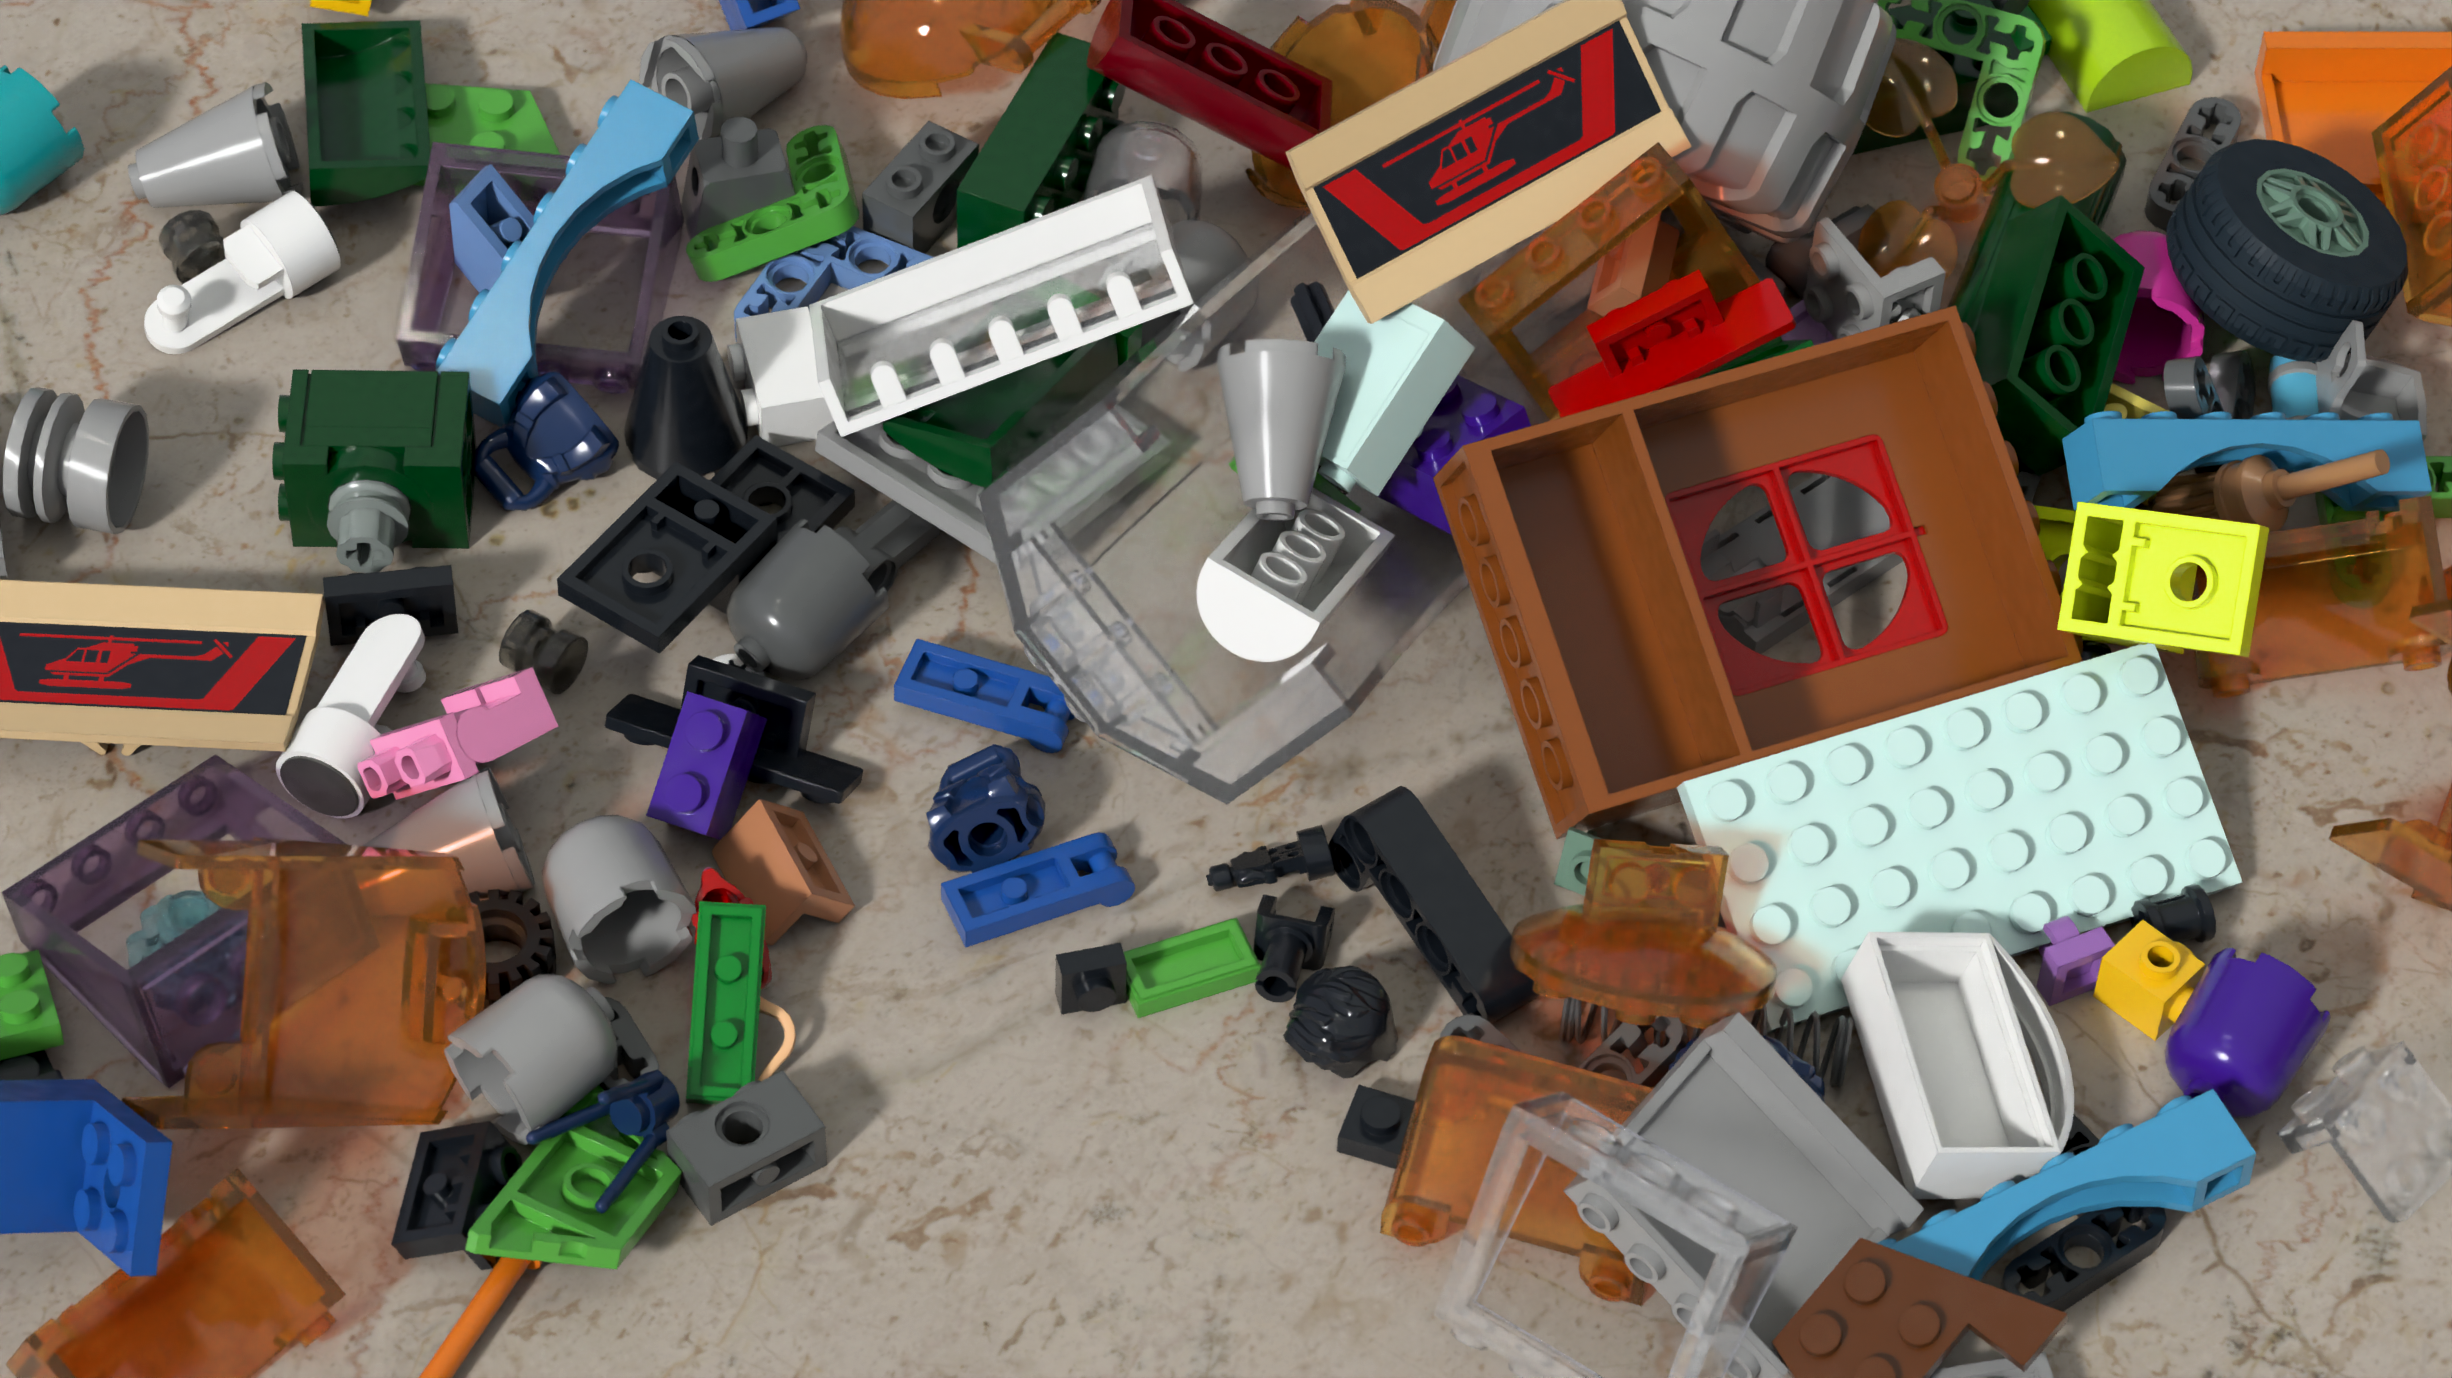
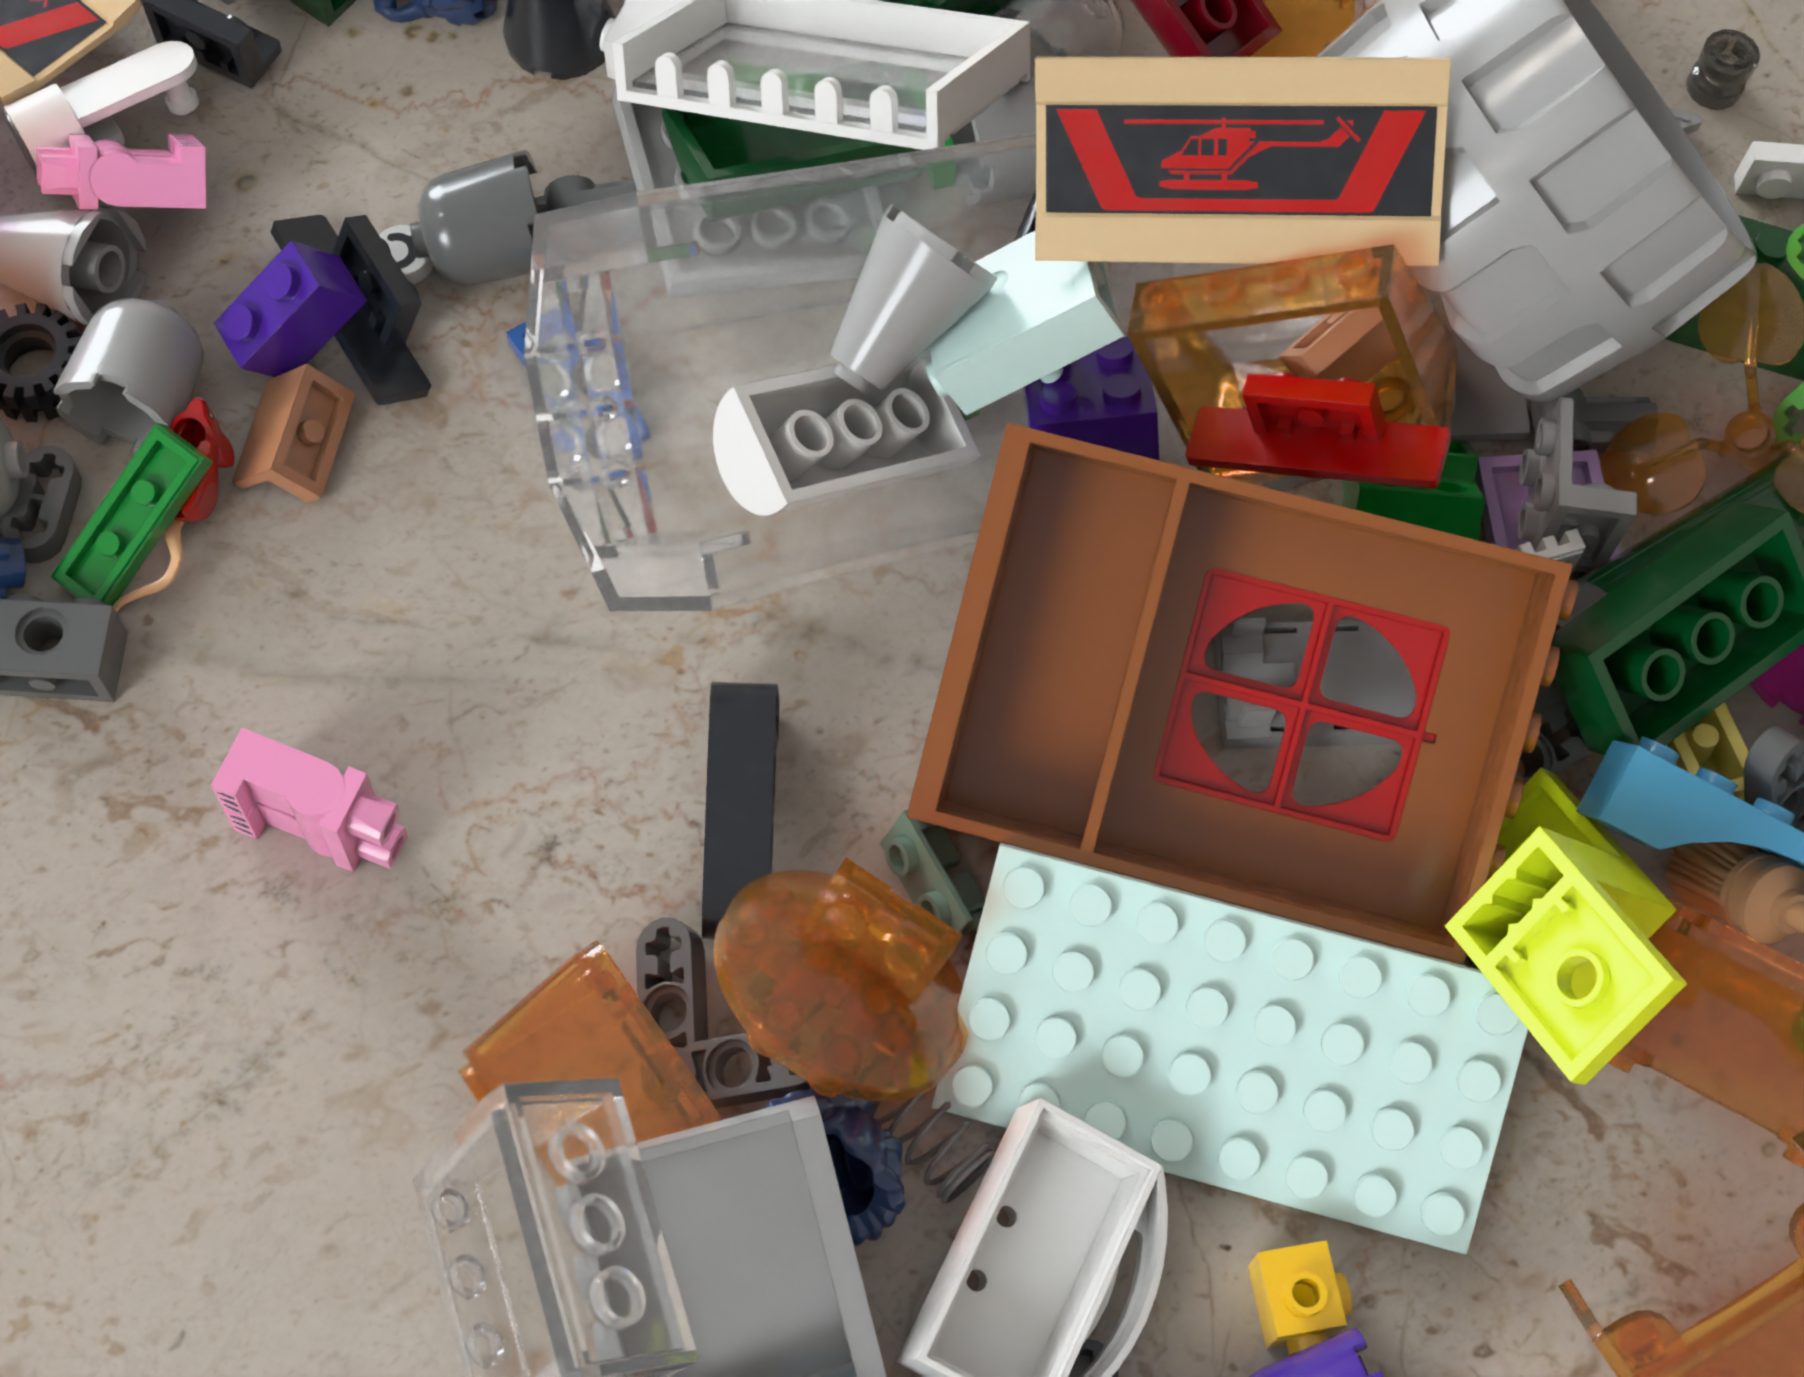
camera: 35 degrees right, 15 degrees up
(552, 653) = (285, 141): clear smoke wheel -> none
(698, 539) = (451, 120): black bracket -> none
(984, 812) = (474, 485): dark blue piece -> none
(1036, 888) = (462, 575): blue plate -> none
(1091, 979) = (427, 683): black plate -> none
(1095, 1109) = (308, 798): none -> bright pink hips
(1189, 967) = (522, 720): bright green tile -> none
(1263, 866) = (661, 672): black piece -> none
(1287, 947) = (606, 758): black piece -> none
(1342, 1021) = (586, 856): black hair -> none
(1375, 1126) = (534, 958): black plate -> none
(2071, 960) = (1242, 1227): medium lavender tile -> none
(2180, 916) = (1370, 1250): black bush -> none

